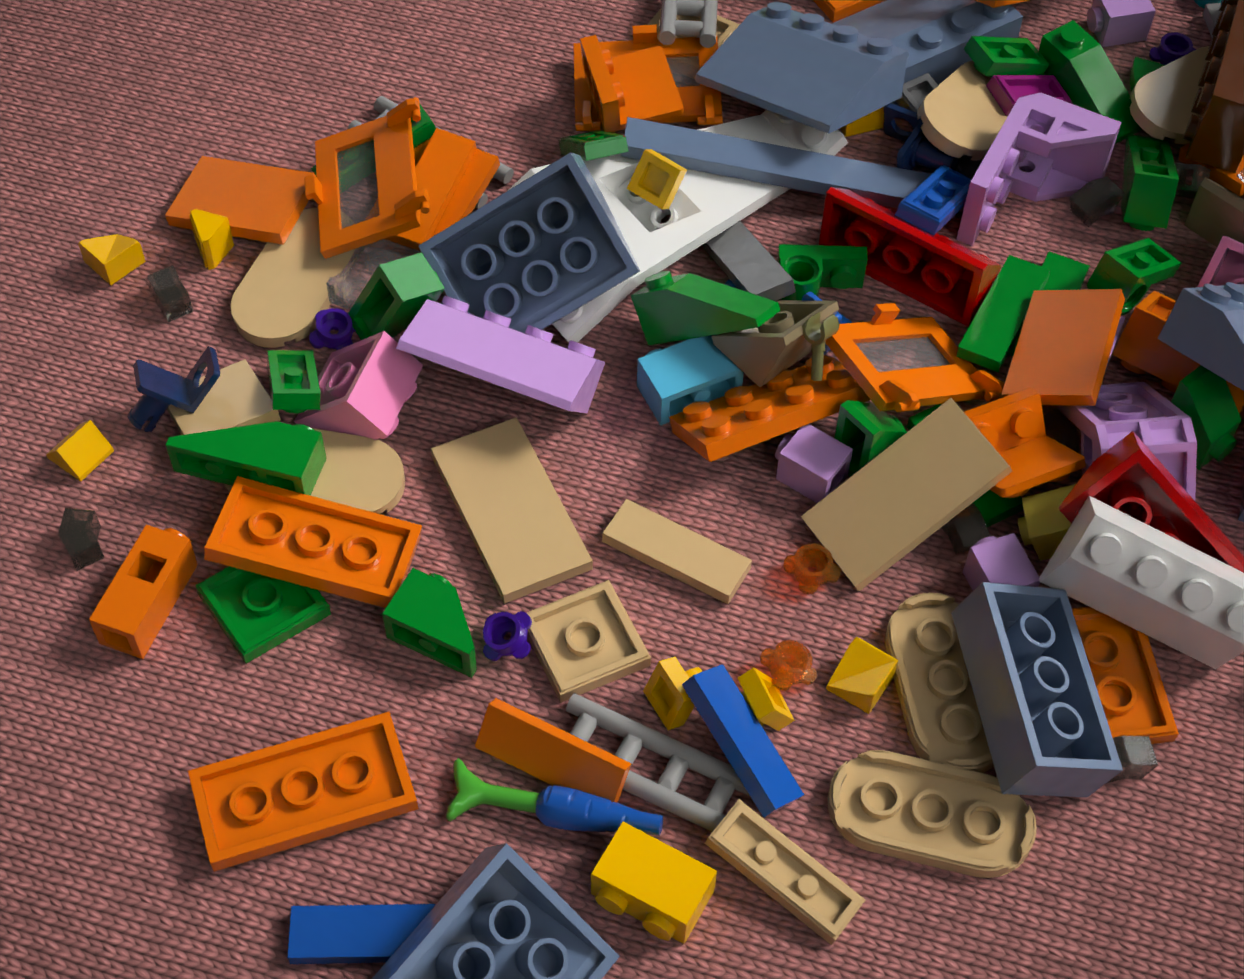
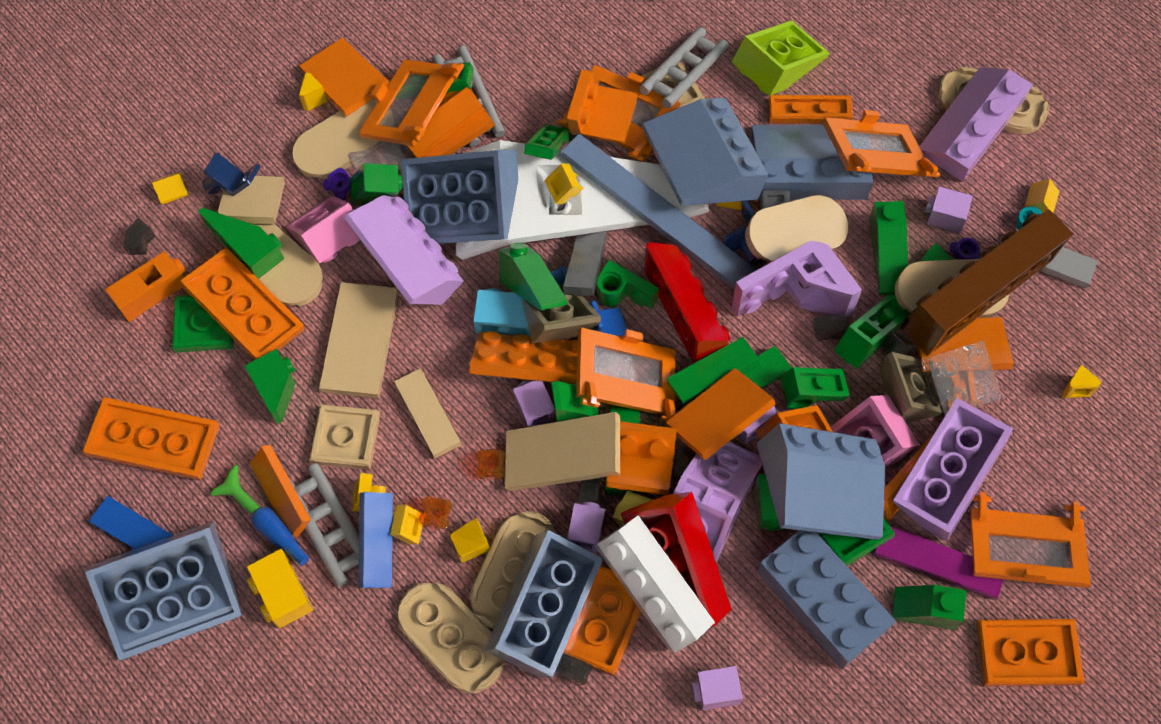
camera: 35 degrees right, 10 degrees up
(112, 256) = (257, 77): yellow slope -> none
(169, 293) = (271, 115): clear smoke piece -> none
(293, 380) = (294, 203): green plate -> none
(495, 629) = (302, 406): dark purple plate -> none
(785, 872) = (349, 622): tan tile -> none
(817, 335) = (570, 330): olive hand -> none
(935, 200) = (715, 280): blue tile -> none
(1005, 56) = (844, 204): green plate -> none
(1009, 88) = (844, 236): magenta tile -> none

